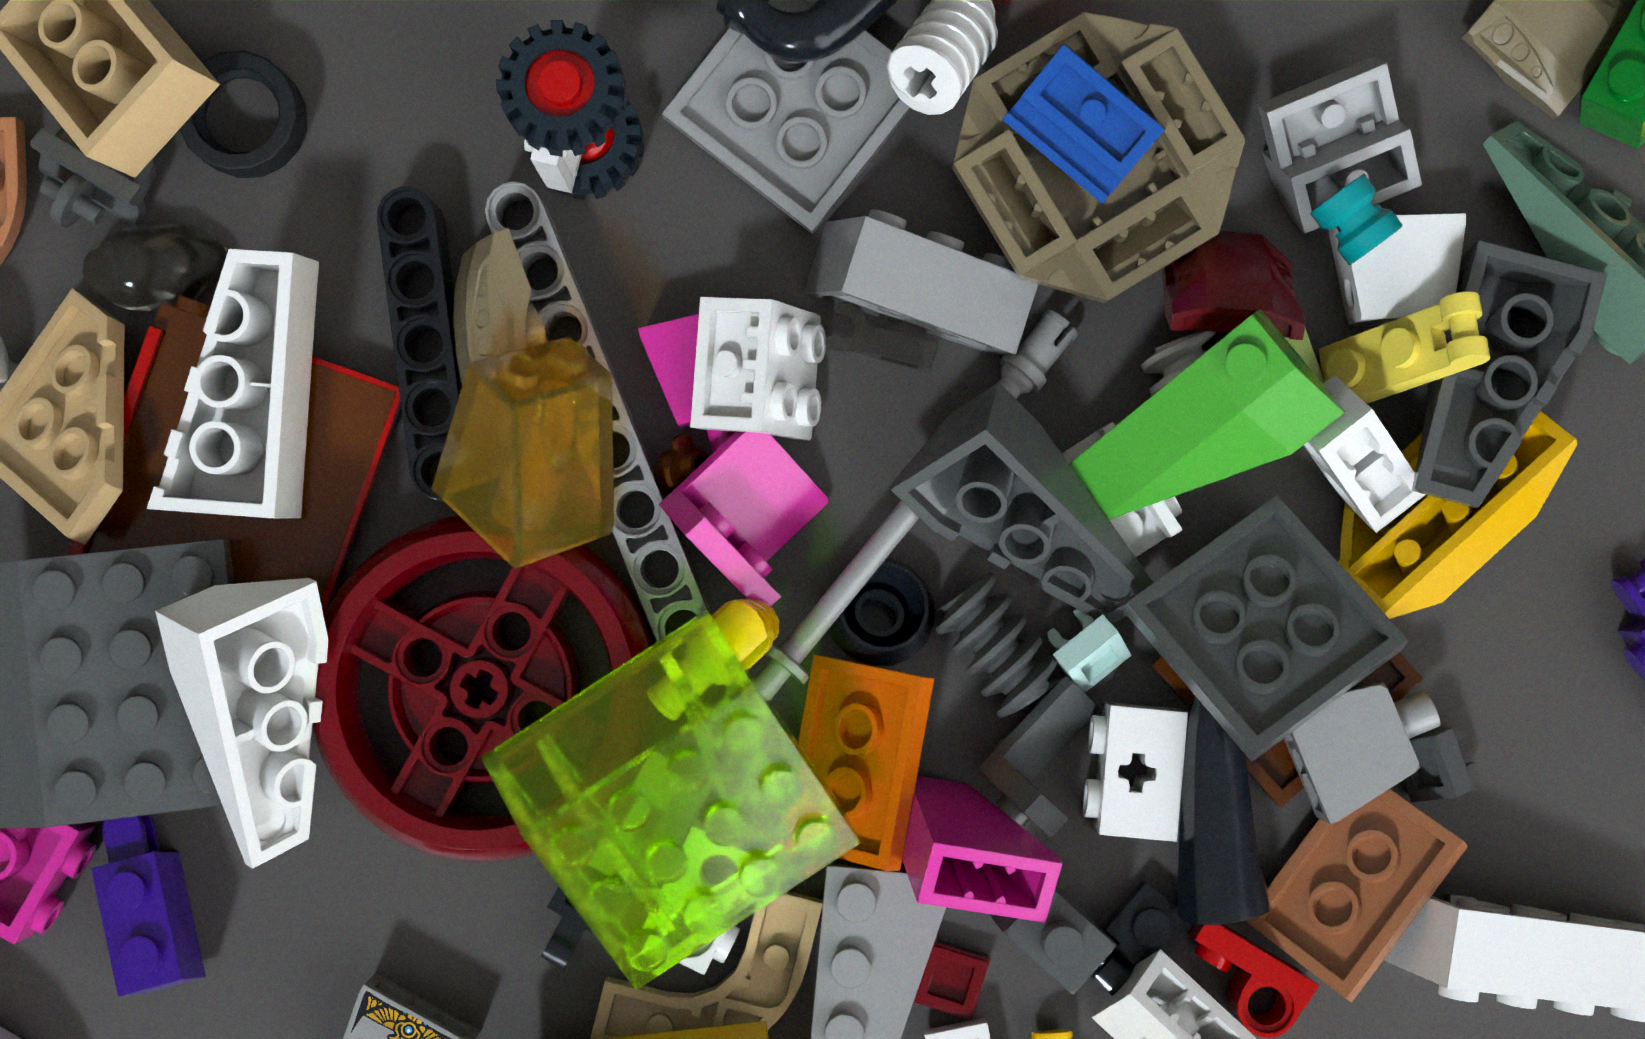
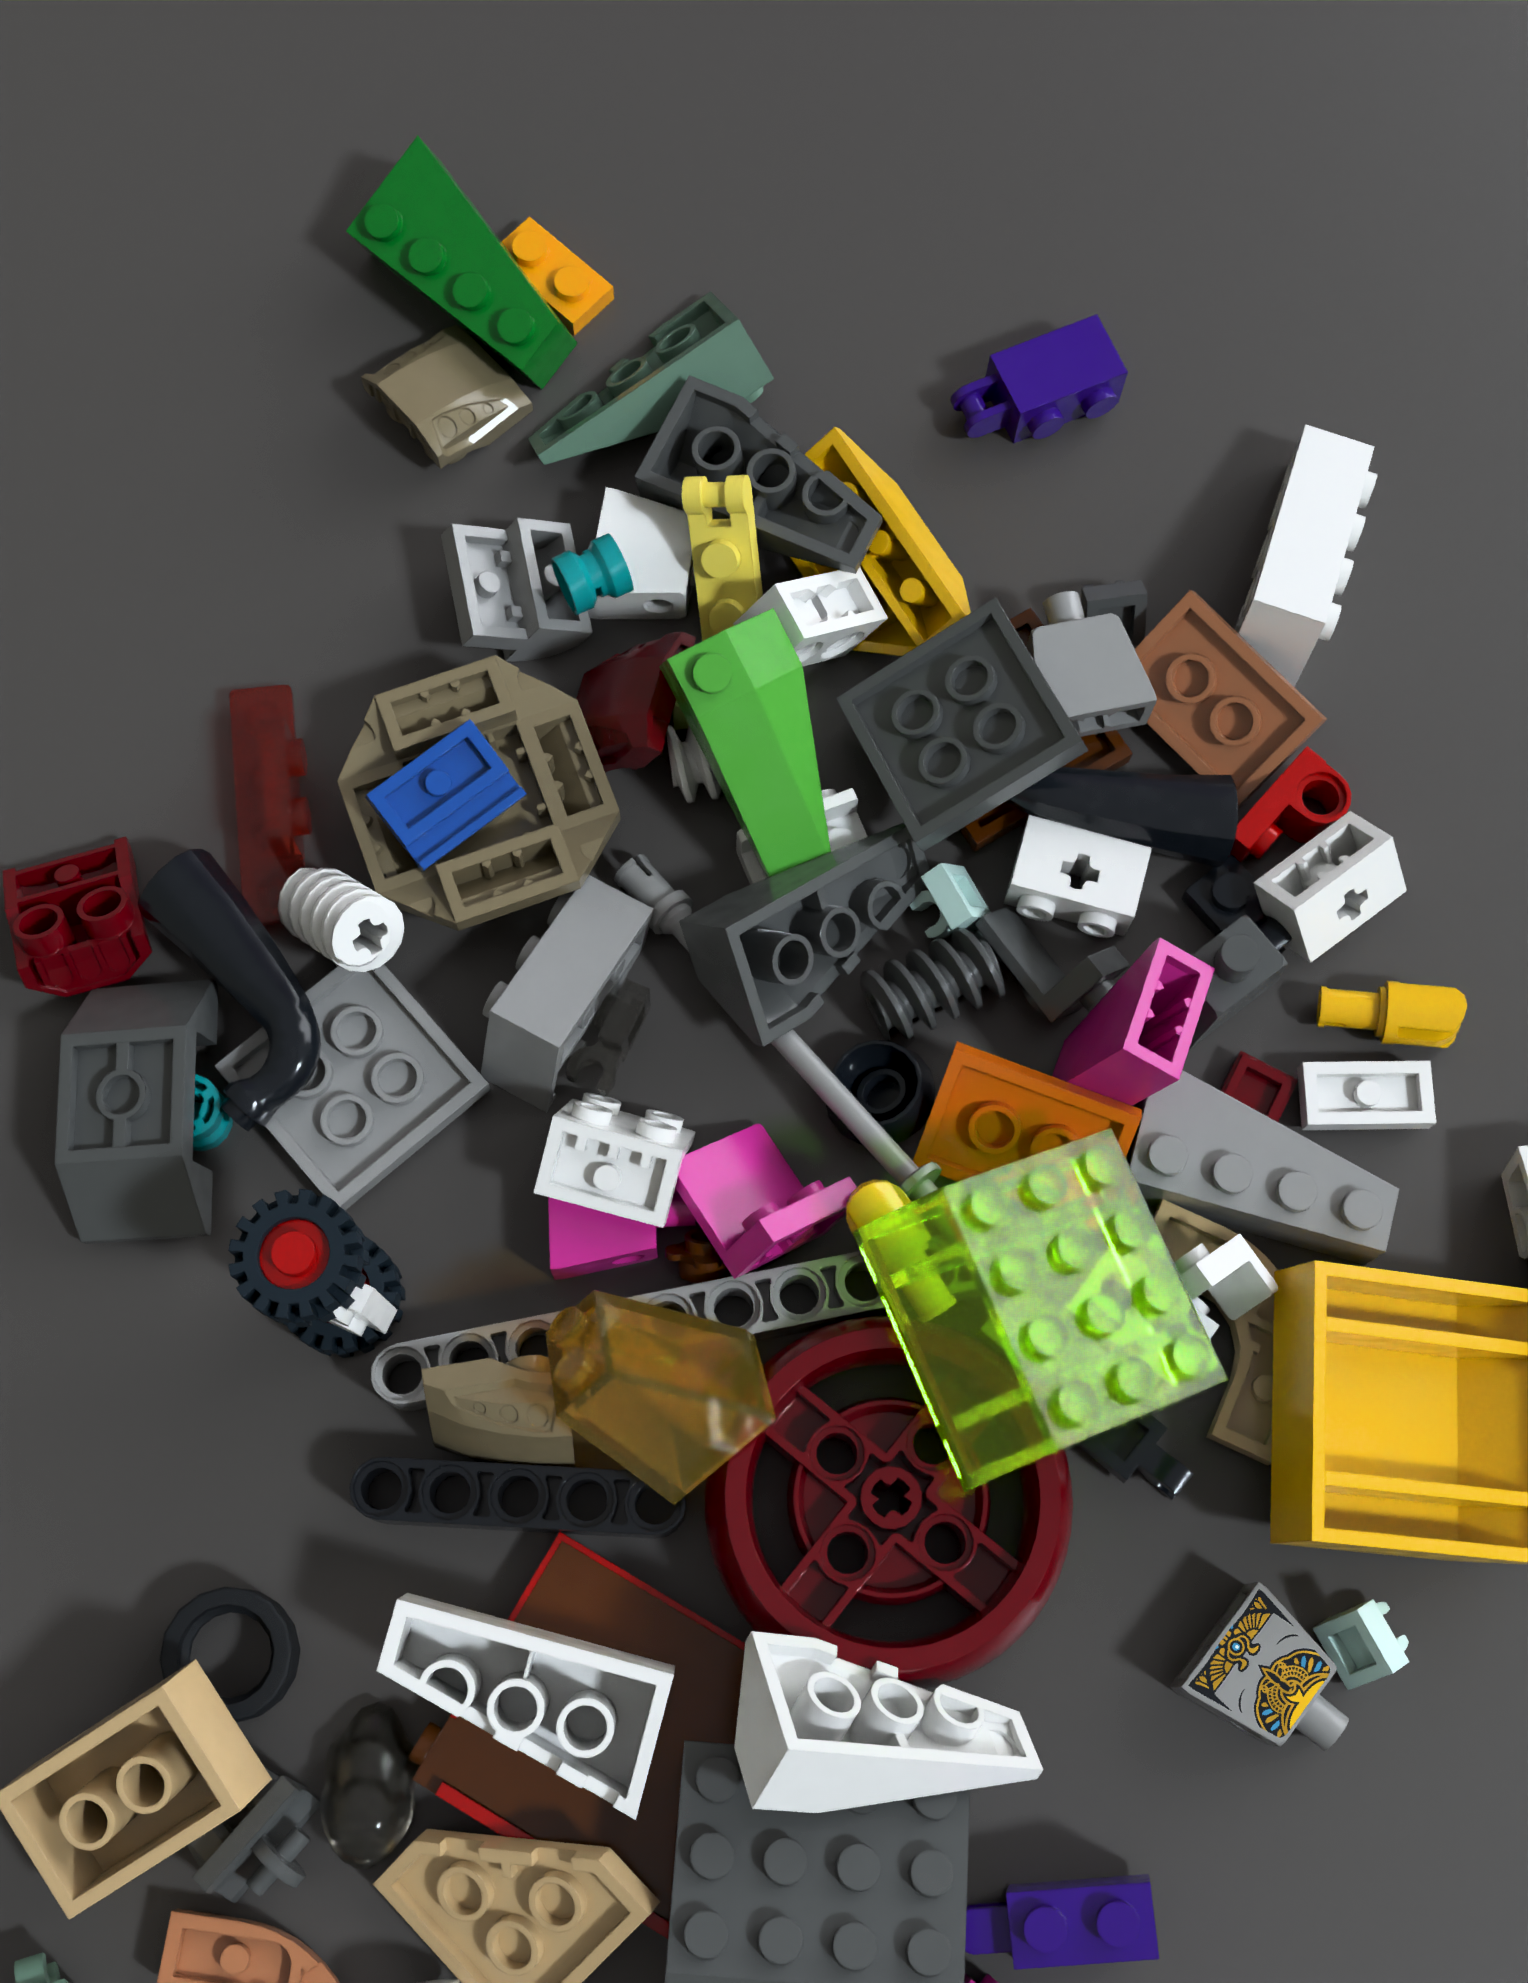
camera: 85 degrees left, 15 degrees down
(754, 972) = (1230, 1275): none -> white bracket

